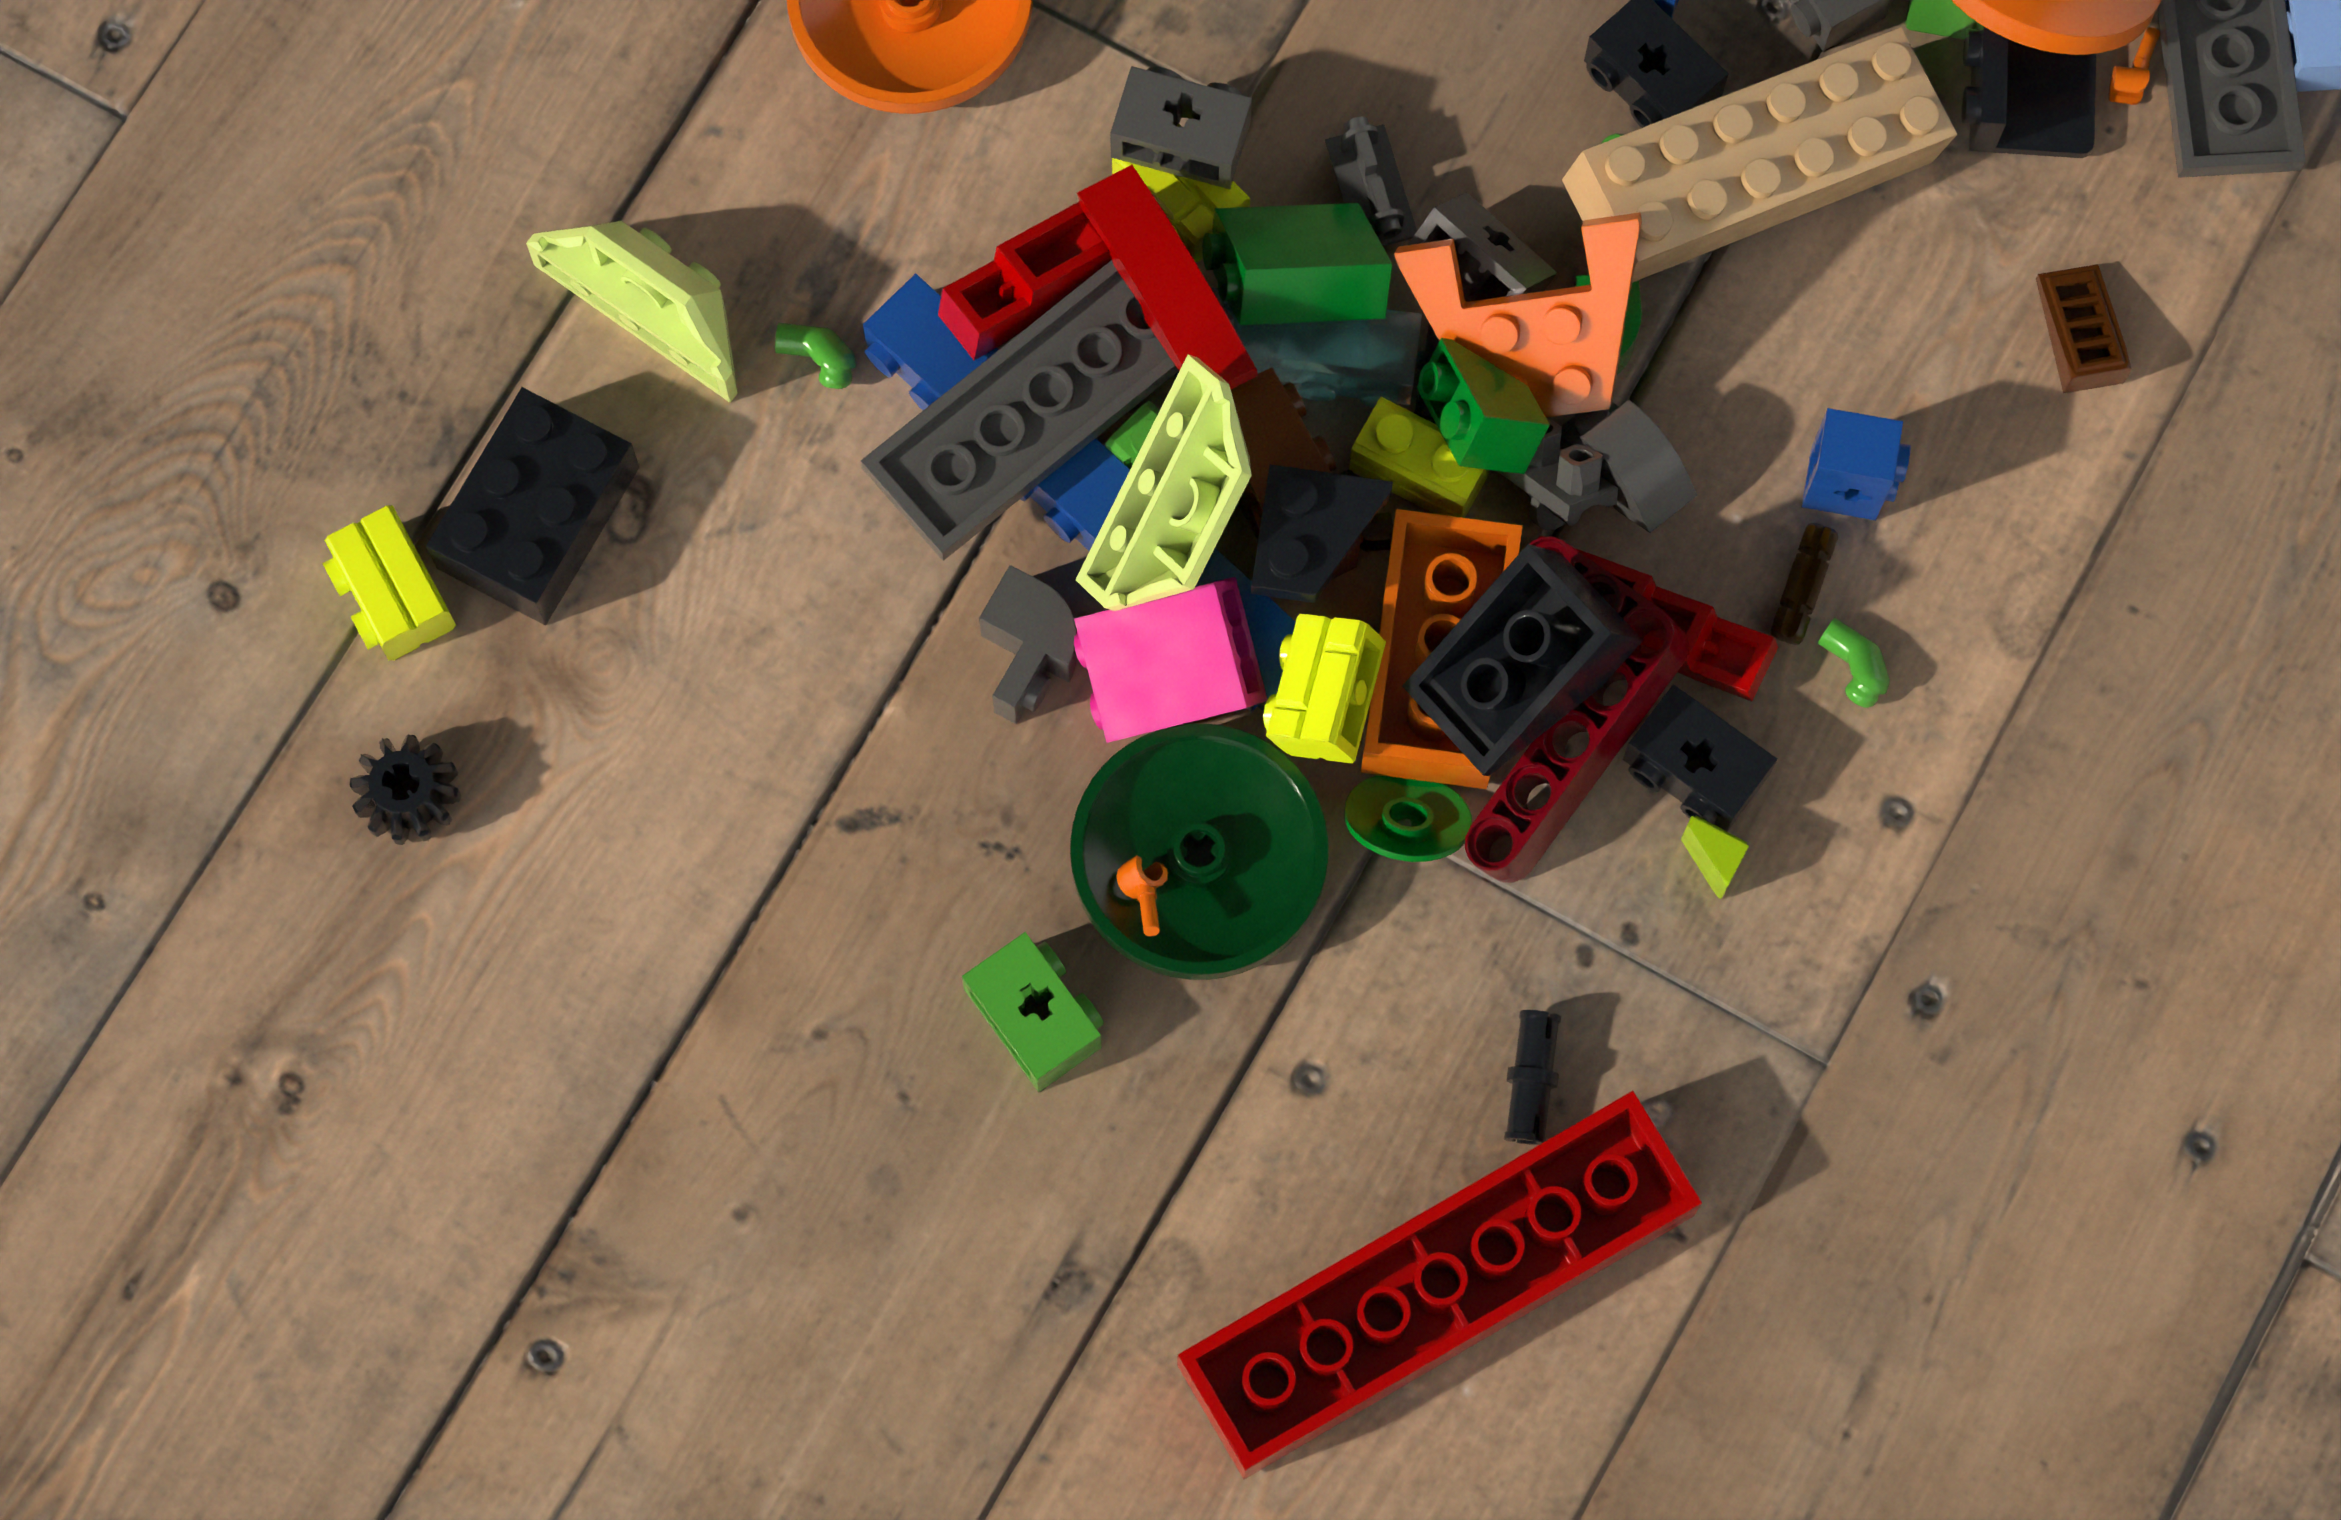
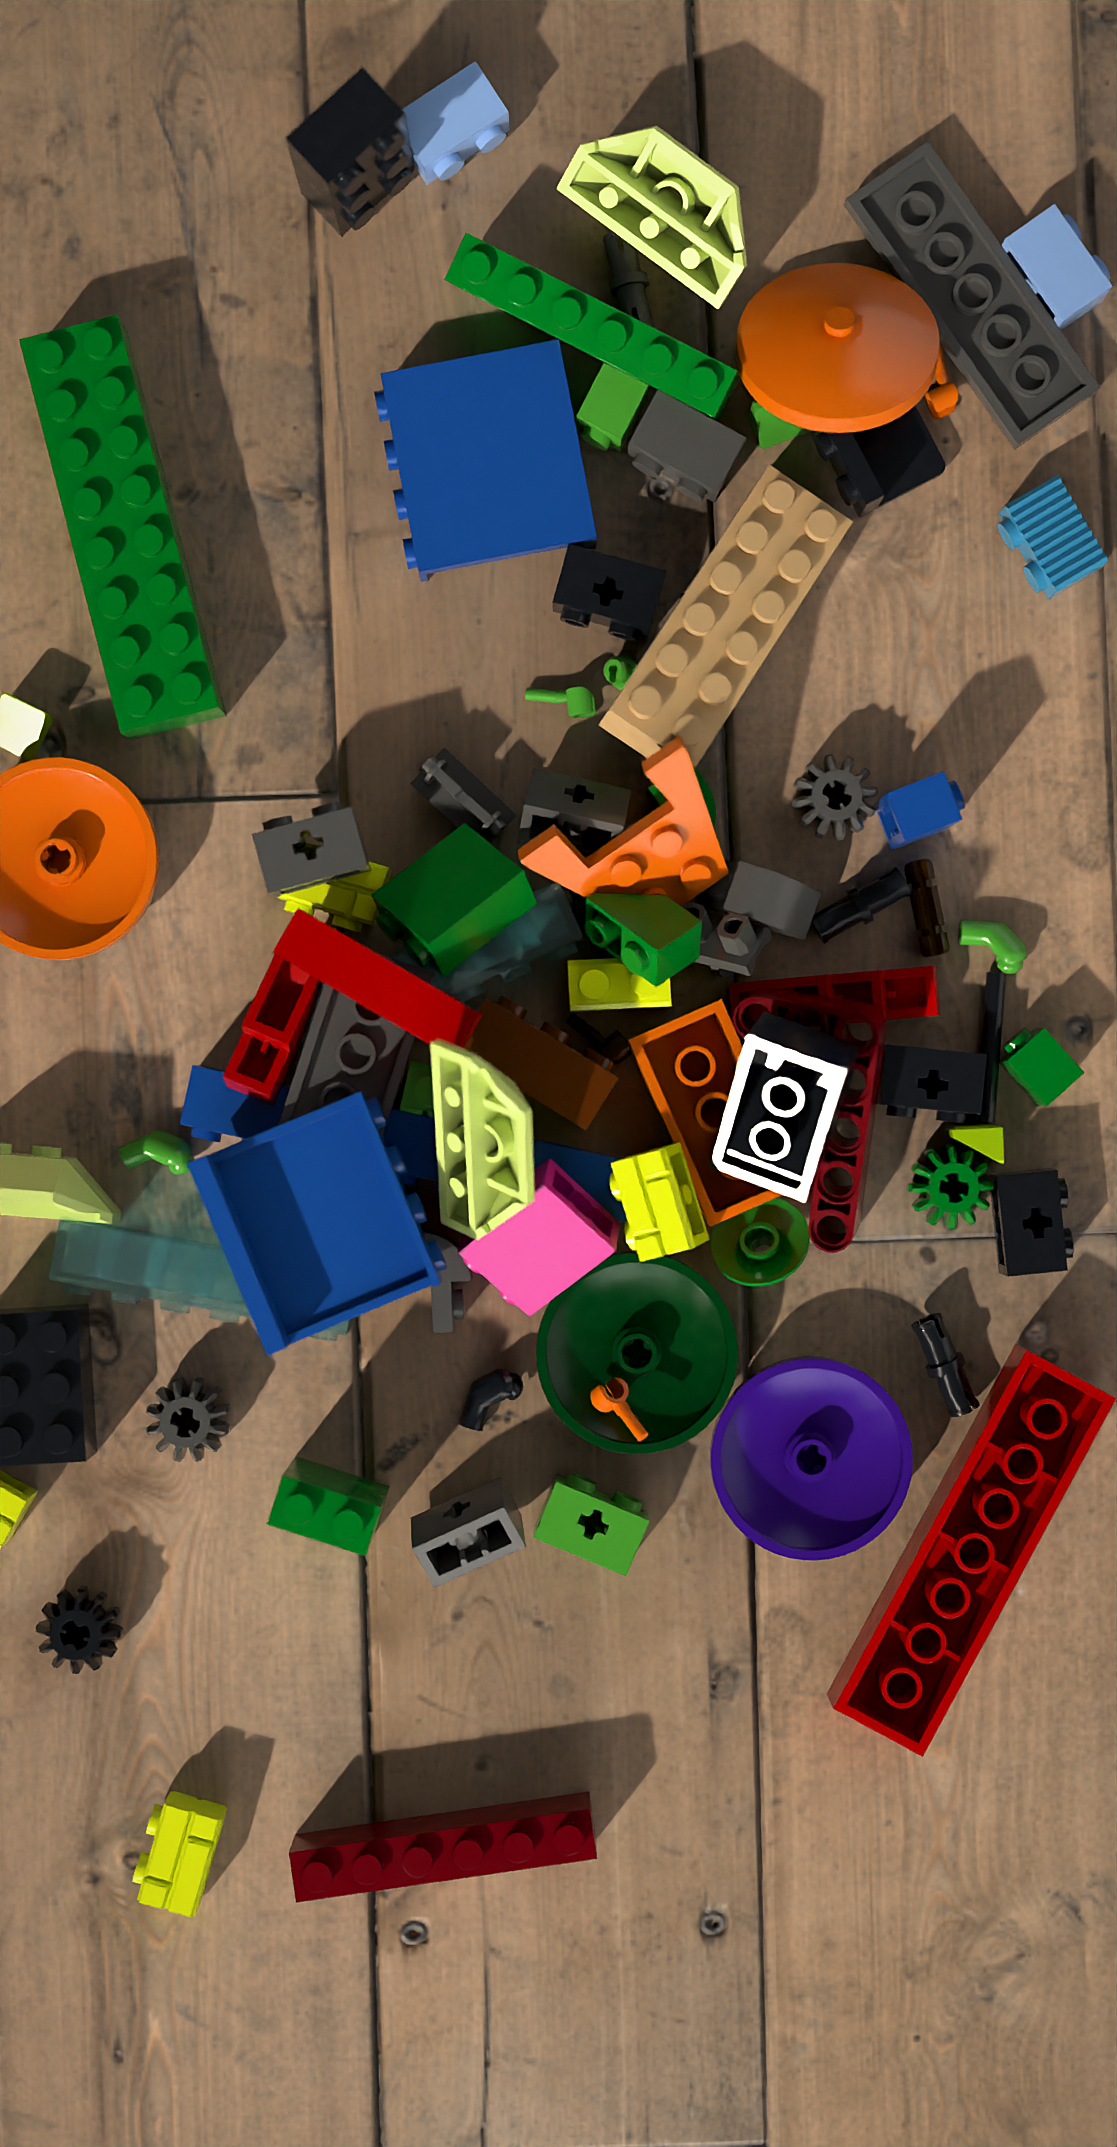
camera: 25 degrees left, 15 degrees up
(352, 1095) = (180, 1853): none -> neon yellow brick
(645, 1263) = (443, 1847): none -> dark red brick
(673, 615) = (173, 1426): none -> dark grey gear
(764, 803) = (328, 1505): none -> green brick
(786, 504) = (152, 1267): none -> clear light blue brick
(893, 931) = (467, 1532): none -> dark grey brick
(948, 490) = (317, 1221): none -> blue panel
(1007, 806) = (486, 1392): none -> black arm
(1310, 528) = (585, 1102): black wing -> none
(1321, 1079) = (811, 1458): none -> dark purple dish
(1555, 154) = (578, 699): none -> bright green hand
(1678, 886) = (959, 1171): none -> green gear
(1727, 938) = (1018, 1247): none -> black brick
(1732, 536) = (860, 905): none -> black pin
(1777, 387) = (850, 791): none -> dark grey gear
(1790, 766) = (991, 1041): none -> black bar
(1830, 815) = (1039, 1065): none -> green brick
(2090, 373) = (1024, 590): reddish brown slope -> none
(2164, 282) = (1051, 538): none -> dark azure brick

